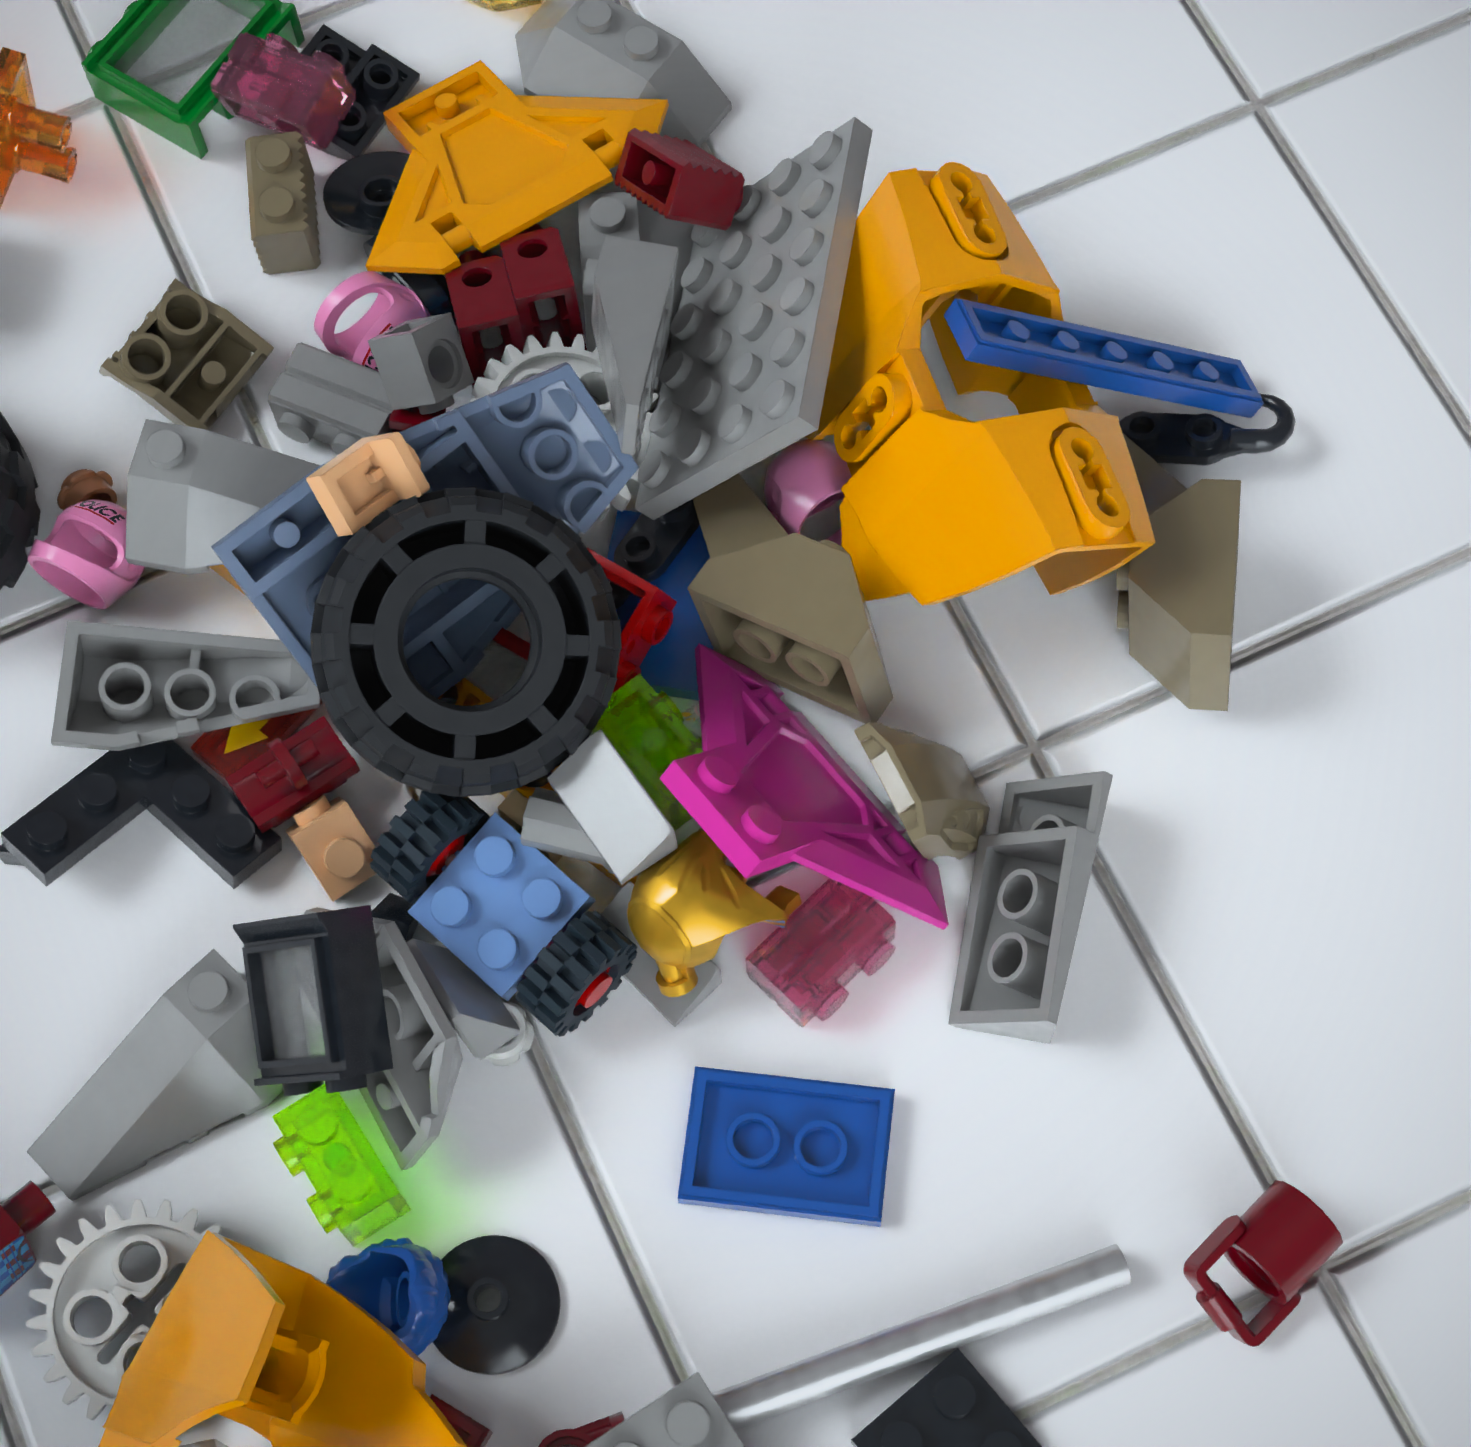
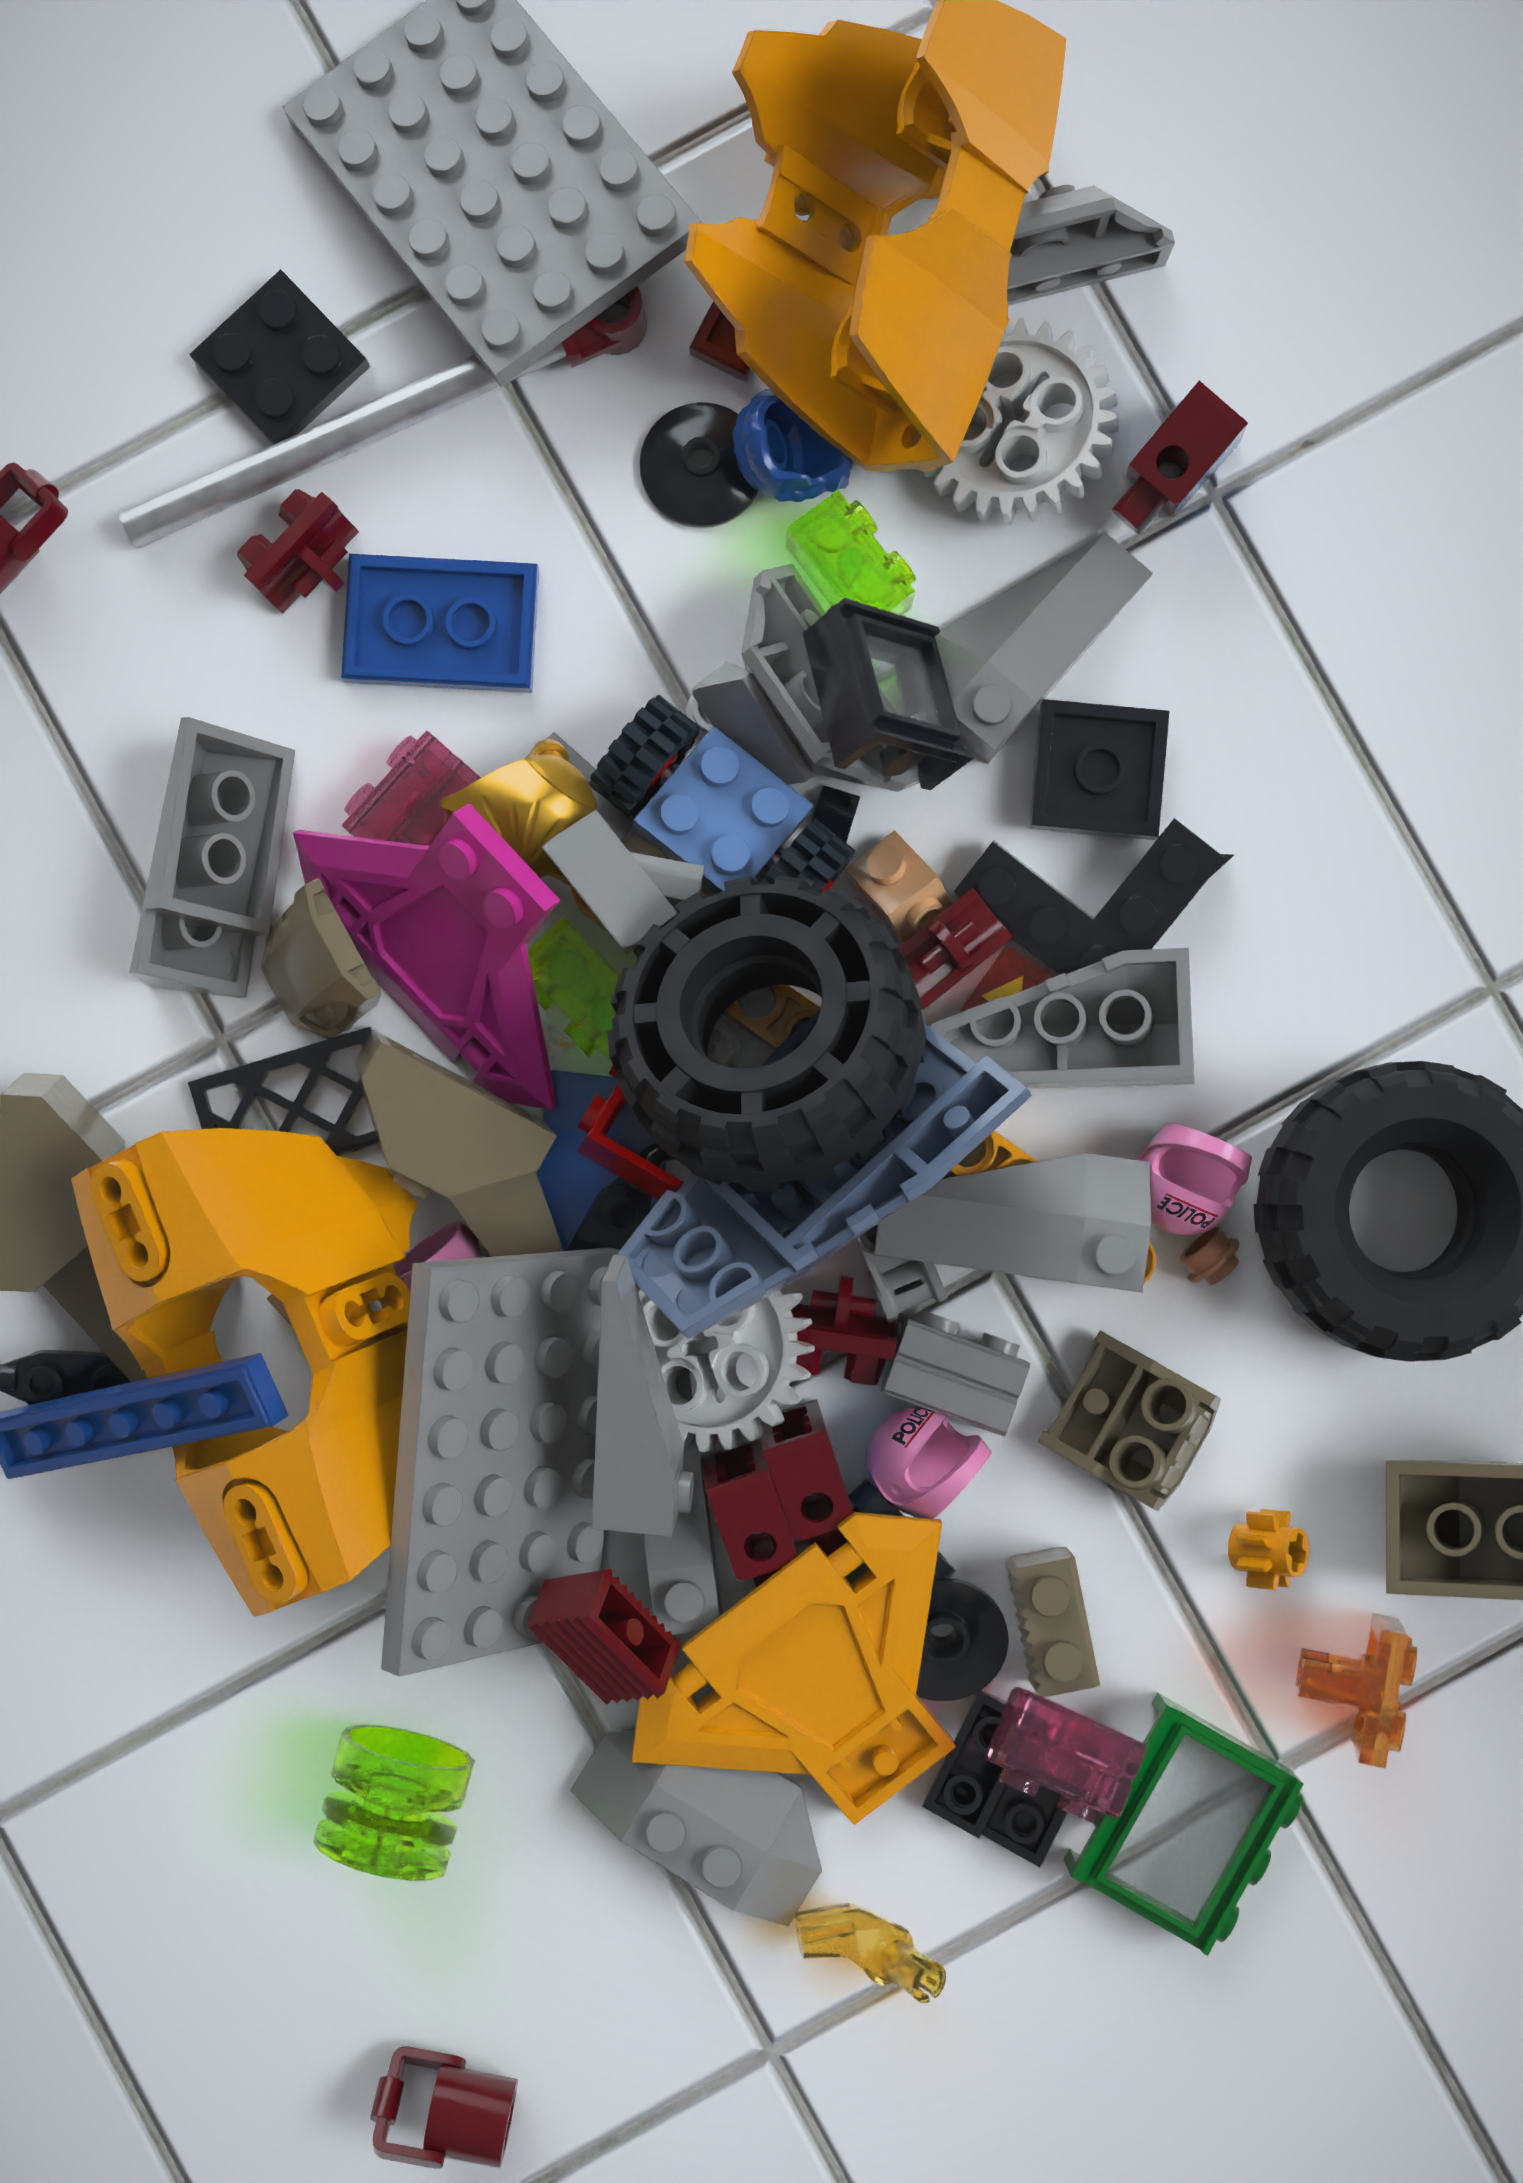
camera: 175 degrees right, 20 degrees up
(78, 249) = (1268, 1549): none -> light orange gear
(114, 945) = (1099, 769): none -> black plate
(367, 481) = (876, 1165): light nougat bracket -> none
(422, 363) = (865, 1401): light grey brick -> none
(885, 72) = (394, 1802): none -> clear neon green wheel
(954, 1204) = (301, 553): none -> dark red hips
(1002, 708) = (254, 1074): none -> black window

